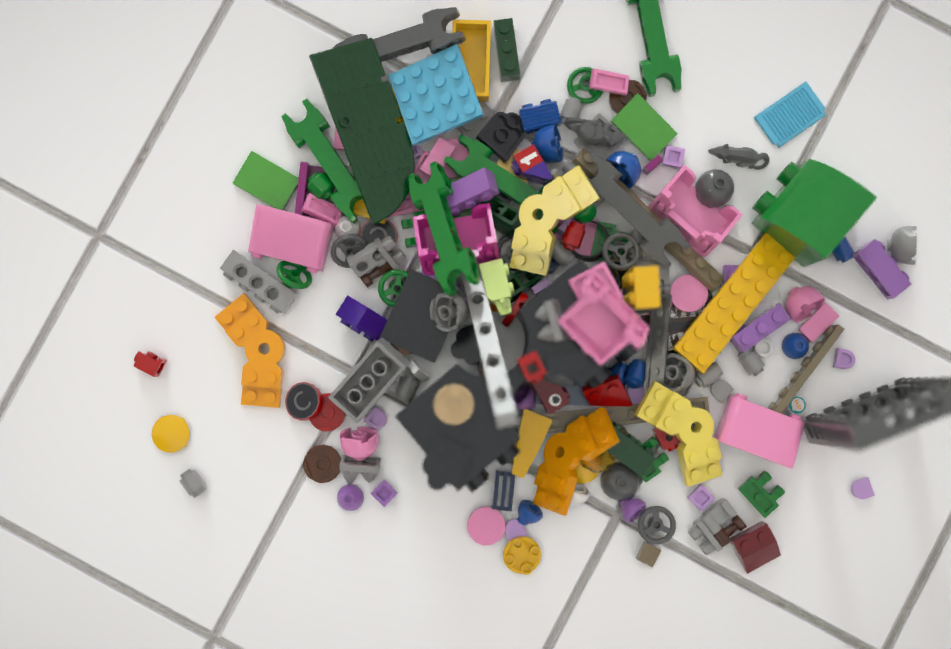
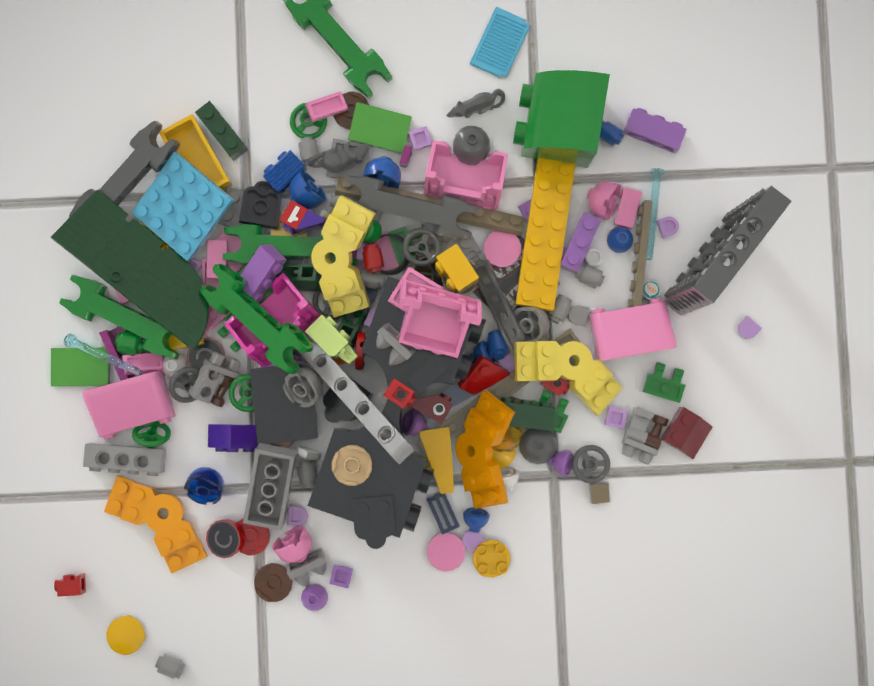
camera: 30 degrees left, 0 degrees up
(272, 154) = (70, 340): none -> clear light blue bar
(313, 346) = (204, 485): none -> clear blue cylinder
(861, 307) = (656, 172): none -> clear light blue bar
(903, 245) = (660, 99): light grey cylinder -> none

